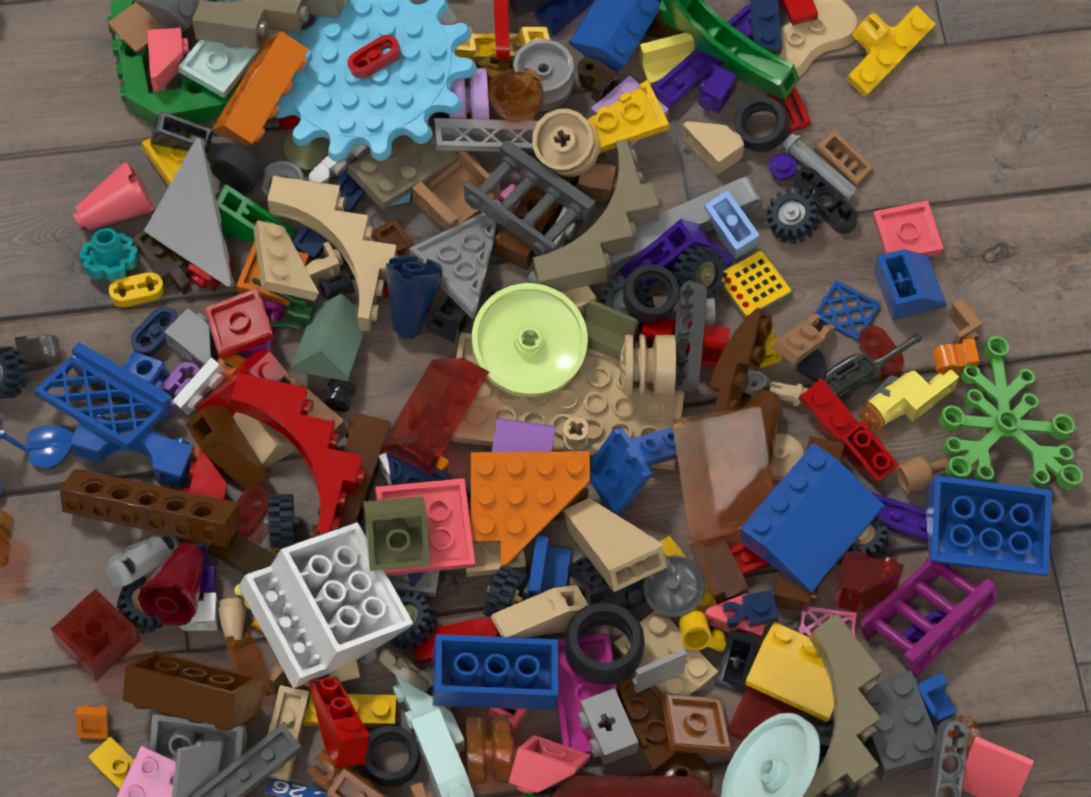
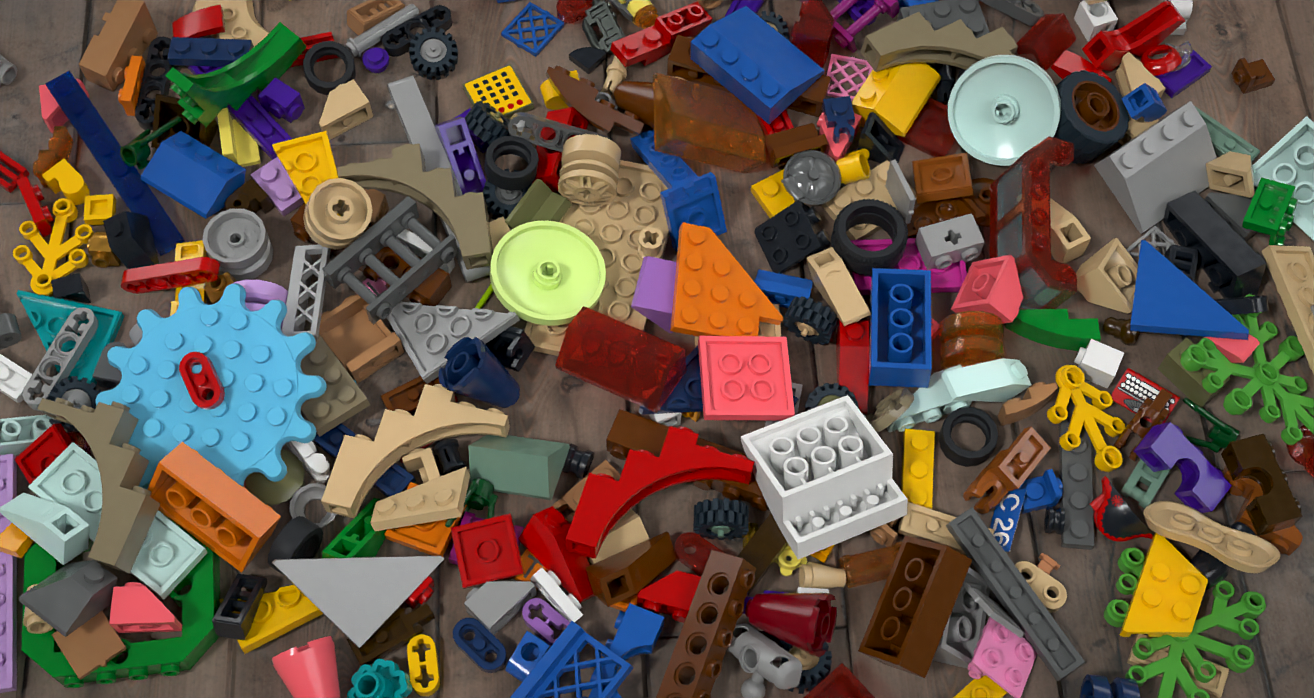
camera: 85 degrees left, 0 degrees up
(339, 723) = (945, 472): red slope -> none
(396, 533) = (761, 393): olive slope -> none
(516, 94) = (268, 255): clear orange cylinder -> none
(614, 545) = (772, 219): tan slope -> none
(732, 225) = (442, 96): light blue slope -> none
(802, 340) = (567, 55): medium nougat hinge -> none

